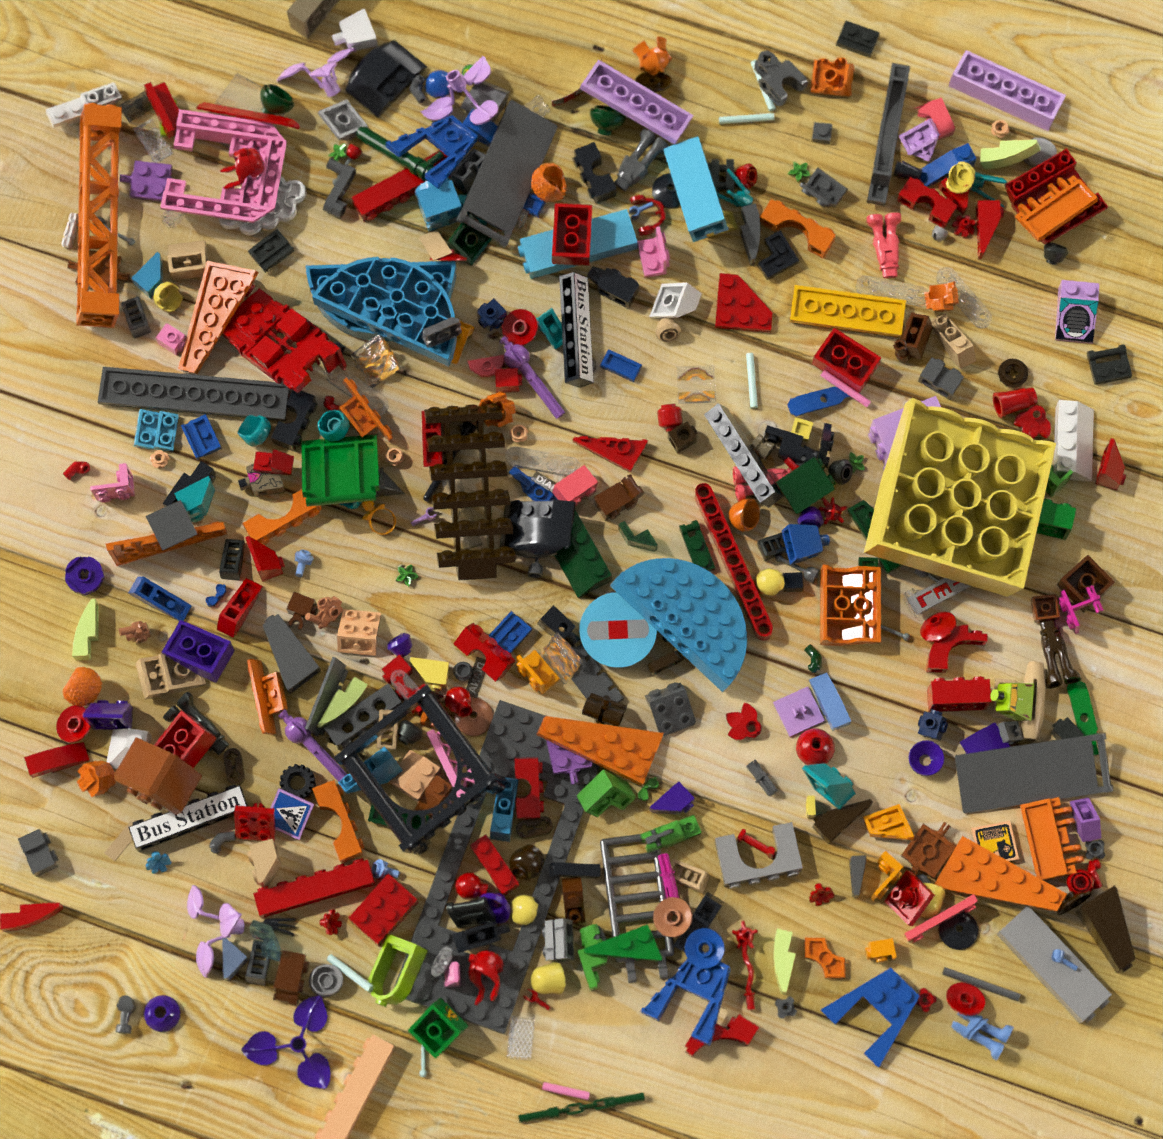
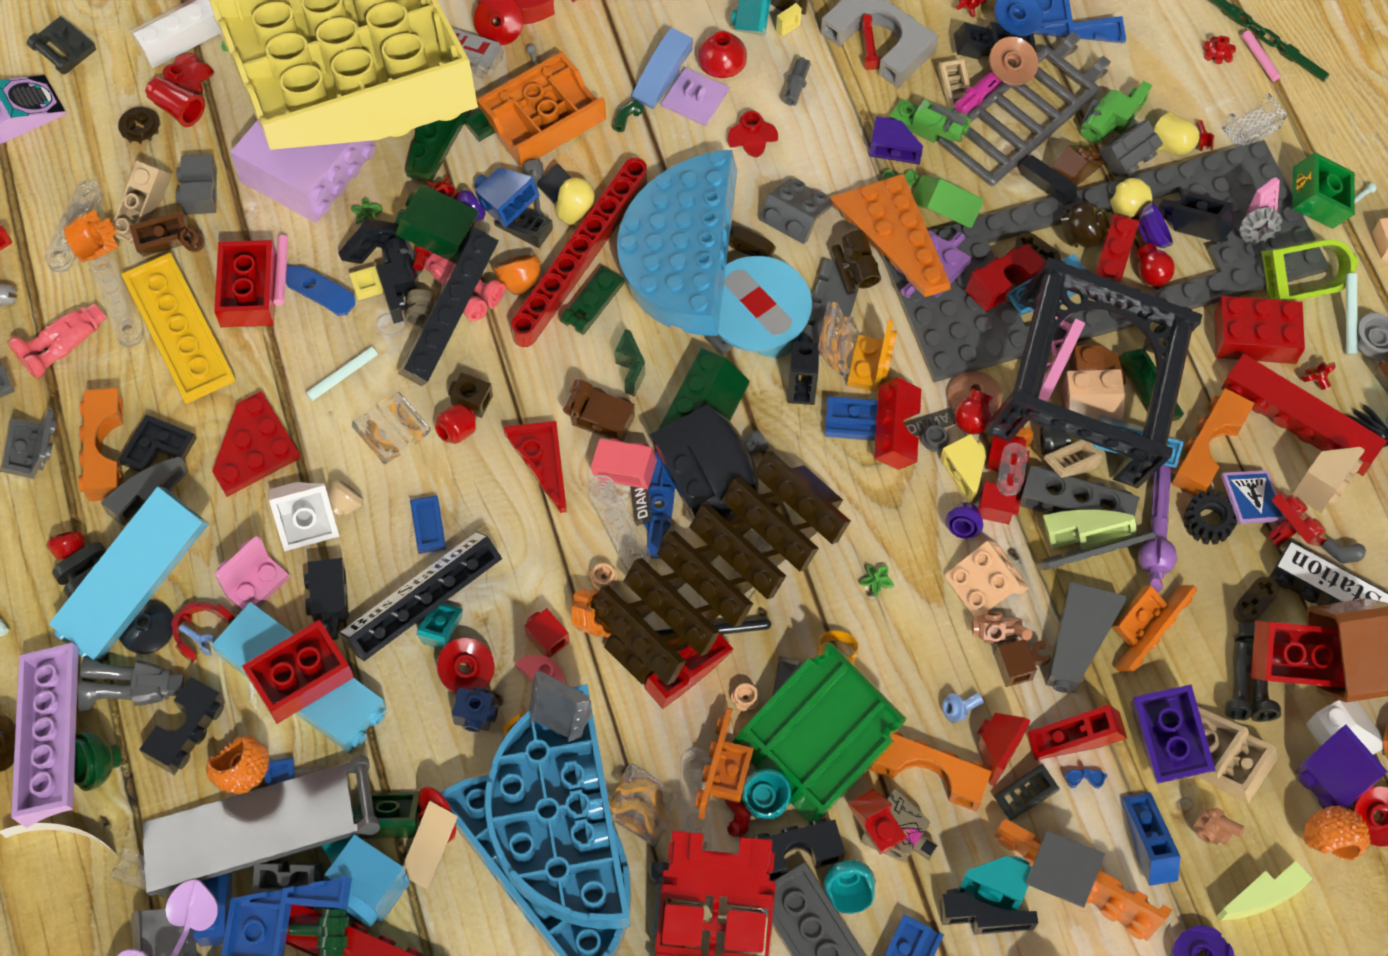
camera: 130 degrees left, 10 degrees down
(380, 868) = (1217, 366): light blue plate -> none
(425, 517) = (789, 608): lavender hand -> none
(471, 913) = (1191, 247): pearl dark grey plate -> none
(489, 964) = (1226, 178): red hair -> none
(518, 357) = (509, 639): medium lavender piece -> none
(587, 1072) = (1219, 49): none -> red plant
(633, 944) = (1073, 76): green wing -> none
(740, 198) = (102, 529): teal plant -> none
(799, 170) = (18, 495): bright green plant -> none
(841, 471) = (387, 211): pearl dark grey cone -> none

